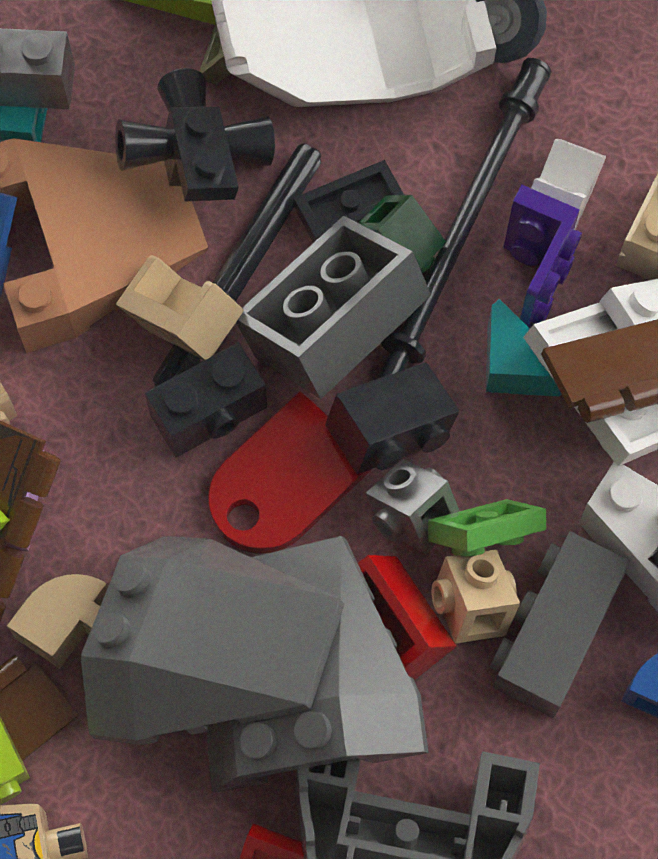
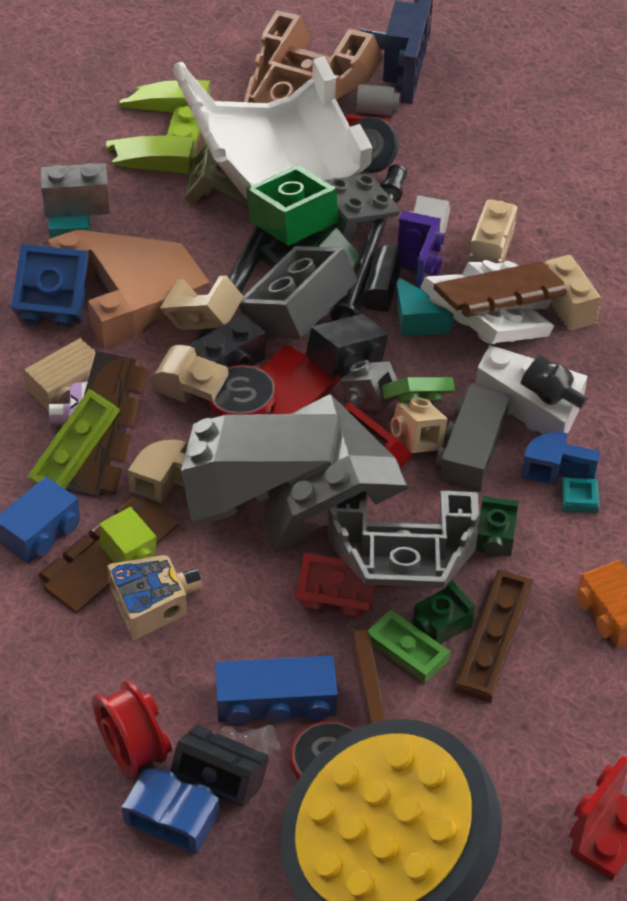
camera: 10 degrees left, 20 degrees down
(137, 449) = (187, 374): none -> tan brick
(195, 141) = (191, 222): black brick -> none
(213, 487) = (245, 392): none -> black tile
(354, 133) = (292, 205): none -> green brick
(451, 132) = (358, 201): none -> dark grey bracket
(473, 282) = (382, 279): none -> black brick
(572, 786) = (497, 526): none -> dark green brick

